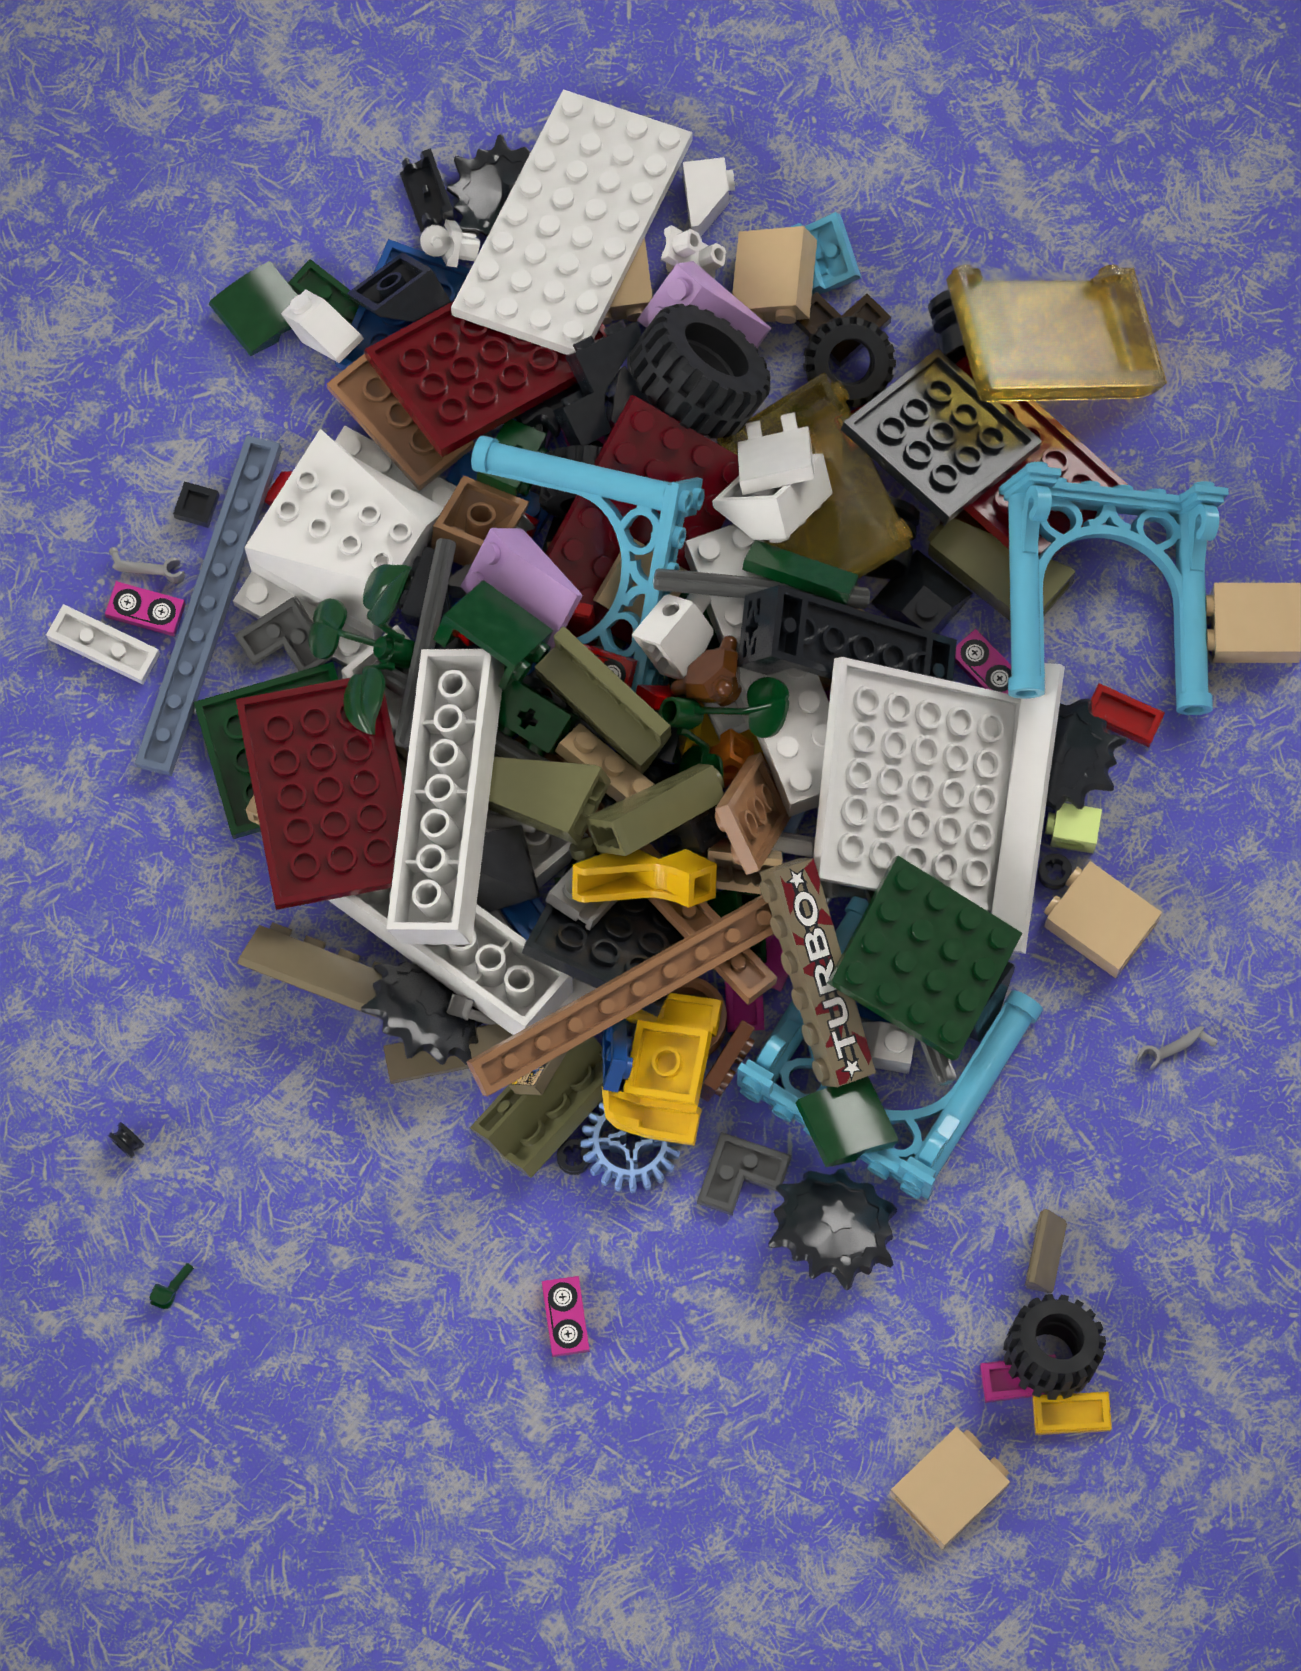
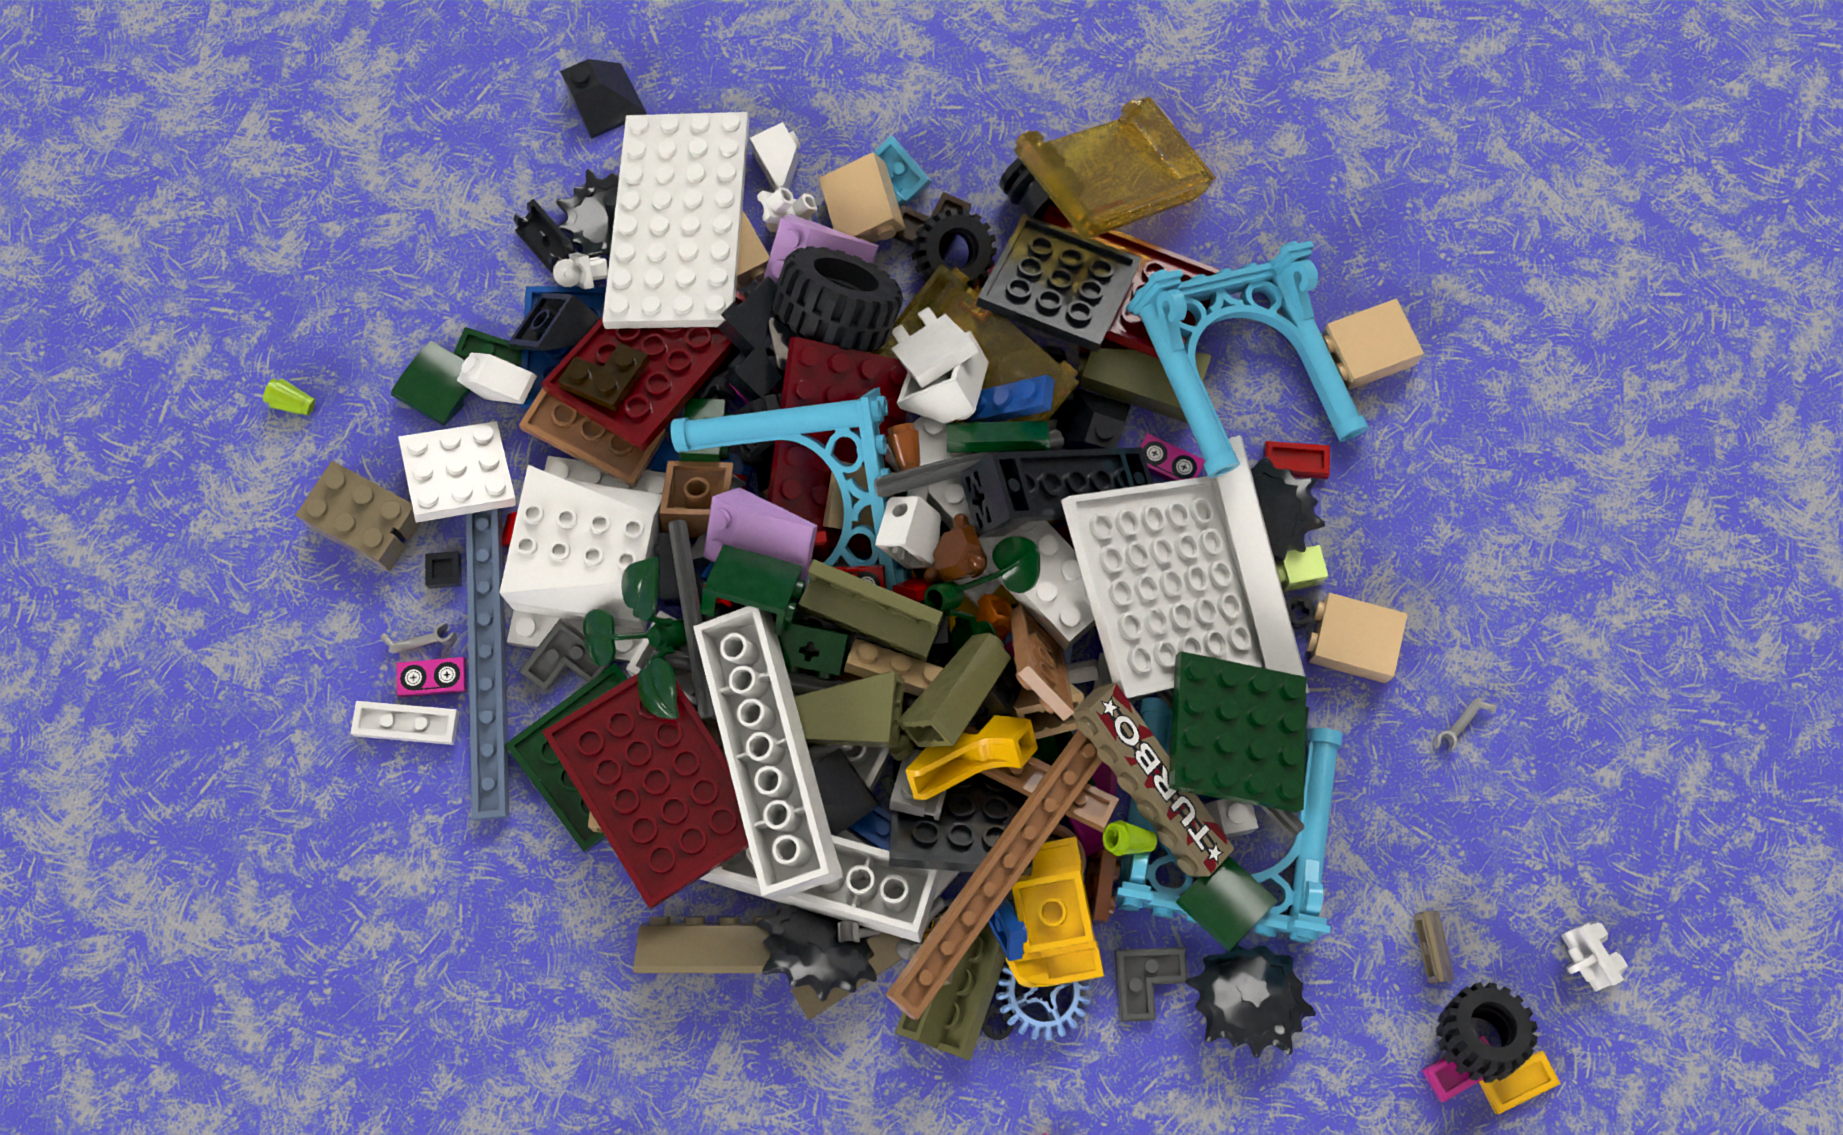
camera: 25 degrees left, 0 degrees up
(102, 268) = (287, 397): none -> lime cone
(133, 418) = (359, 515): none -> dark tan piece
(246, 408) = (456, 471): none -> white plate
(431, 375) = (608, 384): none -> dark brown plate
(547, 57) = (601, 95): none -> black slope
(702, 546) = (904, 445): none -> dark orange cone
(769, 1019) = (1126, 839): none -> lime cone
(833, 541) = (1014, 400): none -> blue plate
(1196, 1321) = (1592, 958): none -> white hips

